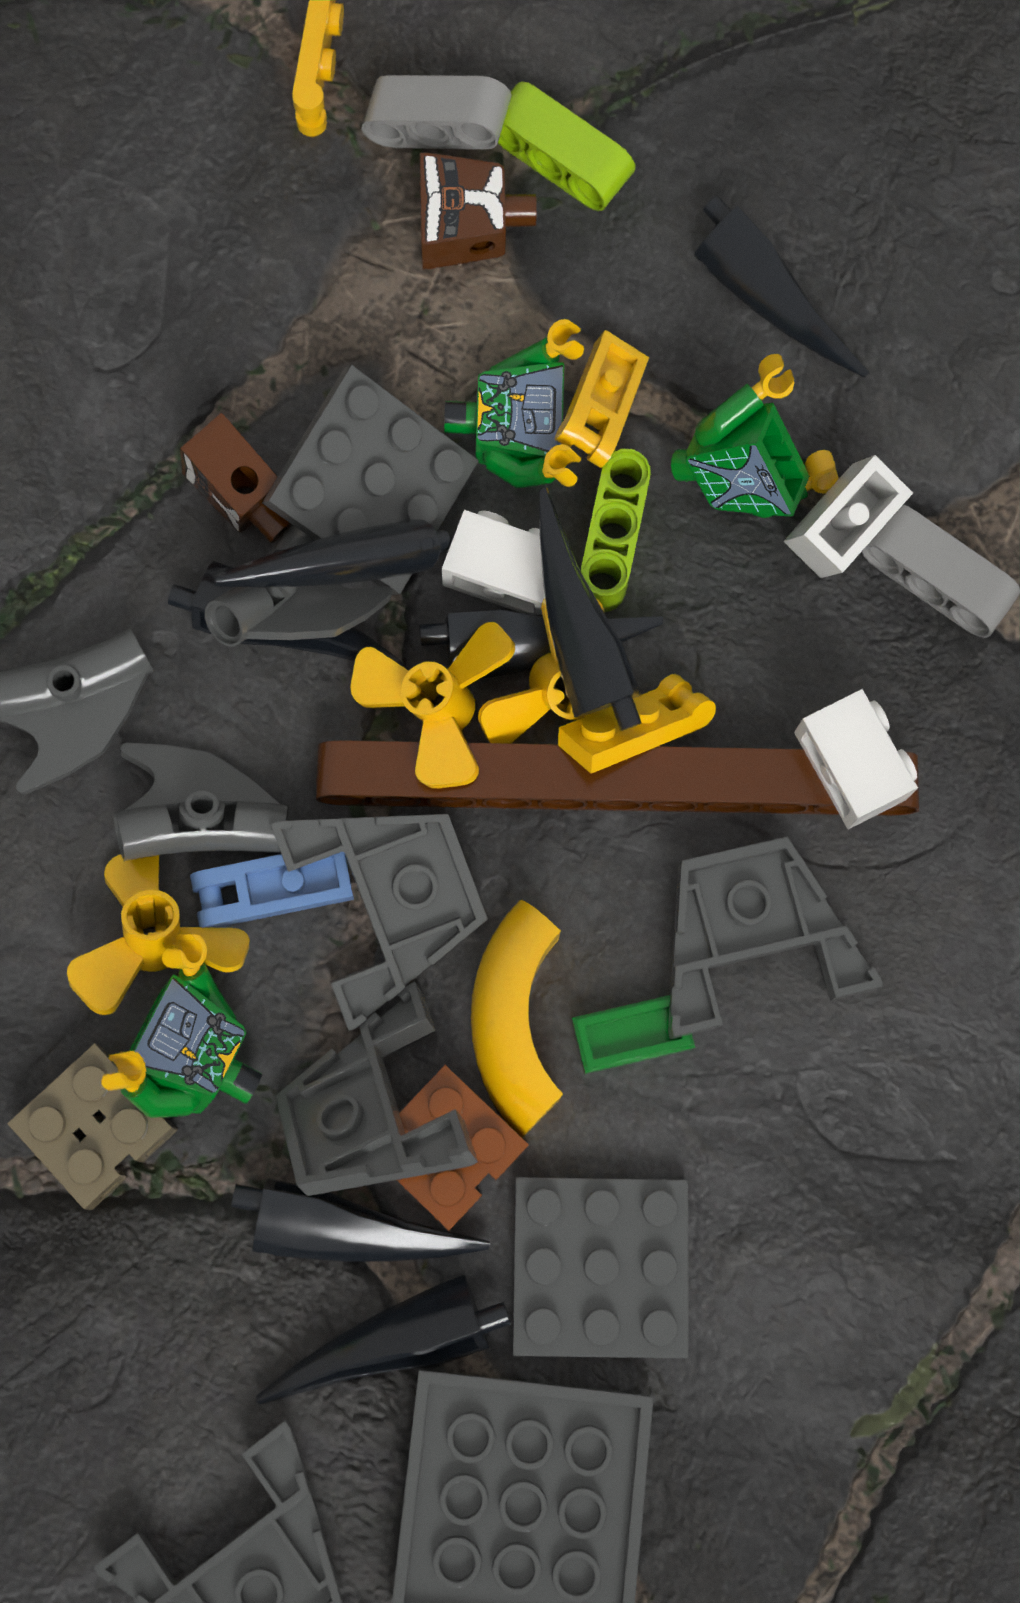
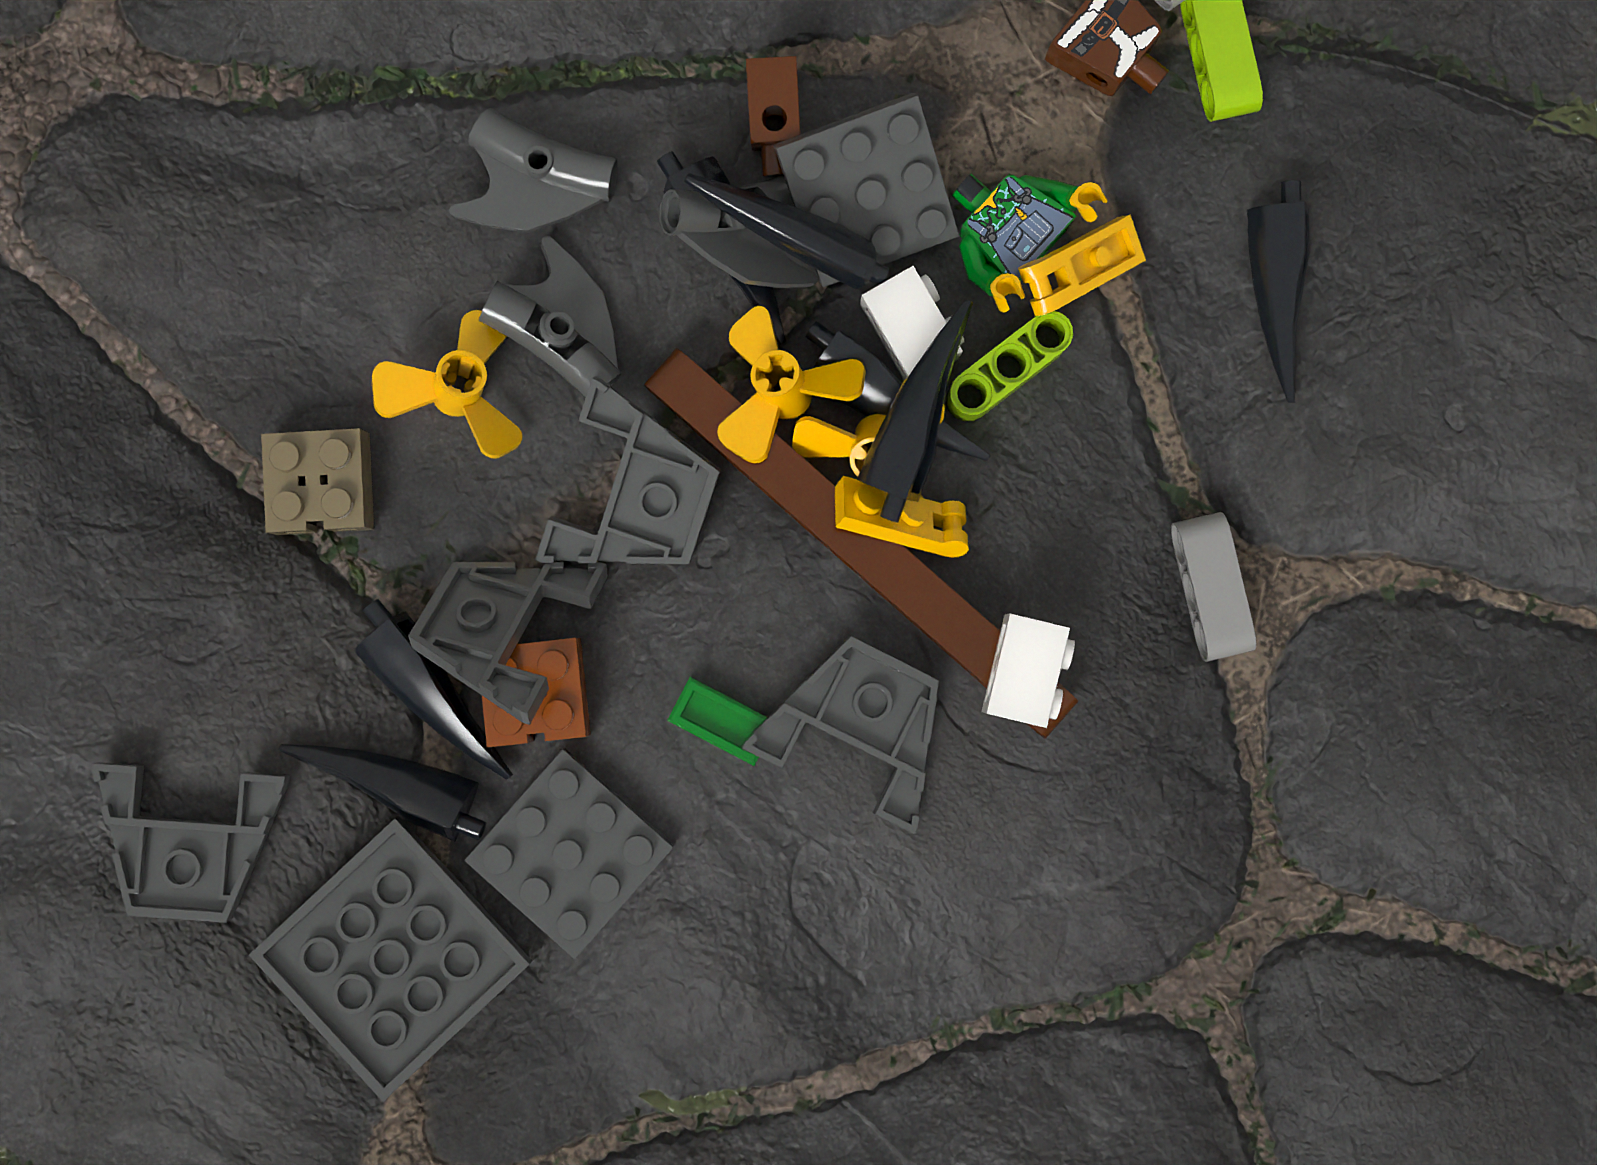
camera: 50 degrees right, 10 degrees up
(184, 1044) = (414, 480): torso -> none
(269, 889) = (558, 418): medium blue plate -> none
(501, 1018) = (643, 636): yellow brick -> none
(747, 456) = (1145, 393): green torso -> none
(848, 517) = (1180, 495): white brick -> none

